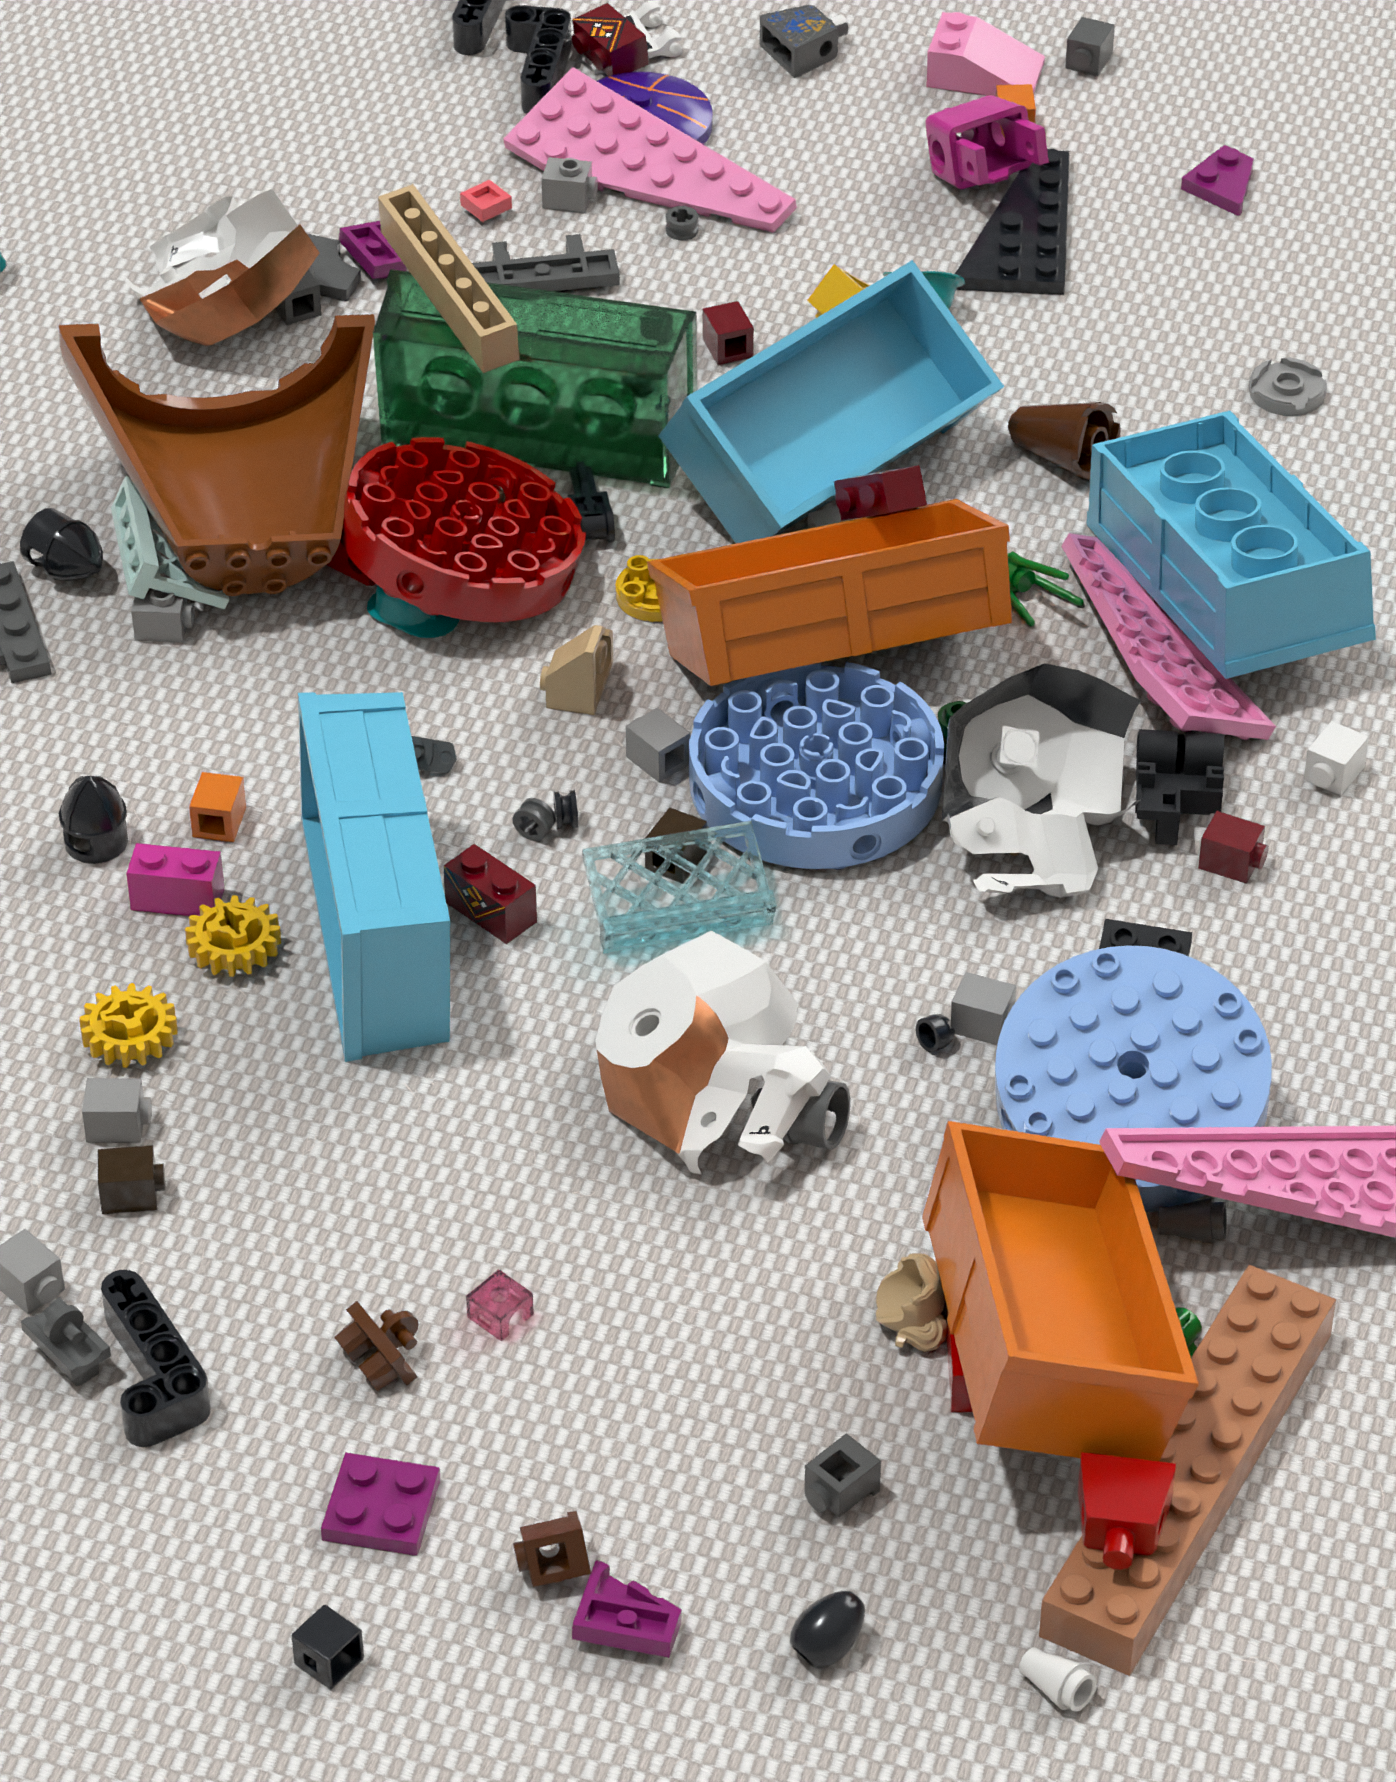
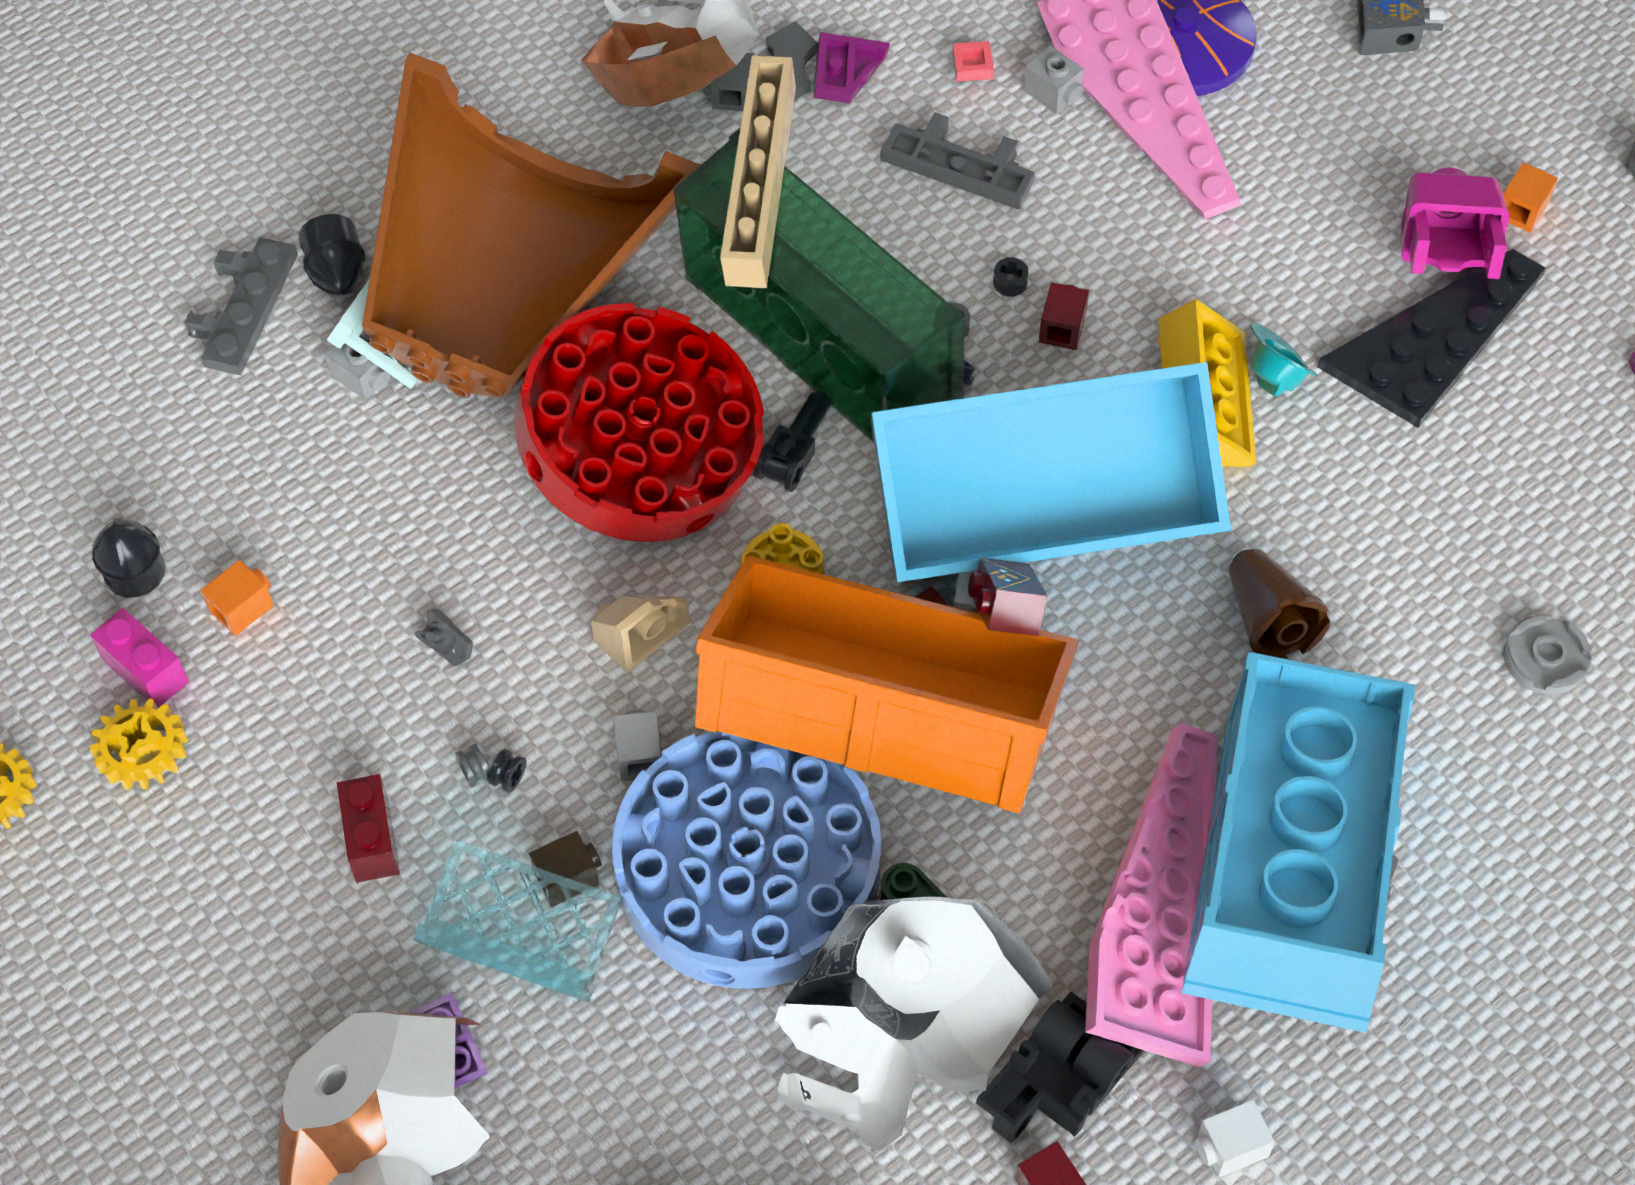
camera: 35 degrees right, 15 degrees up
(374, 873) = (246, 765): medium azure piece -> none
(681, 223) = (1126, 179): dark grey bush -> none
(977, 56) = (1542, 121): bright pink slope -> none
(1022, 578) = (1109, 740): green plant -> none

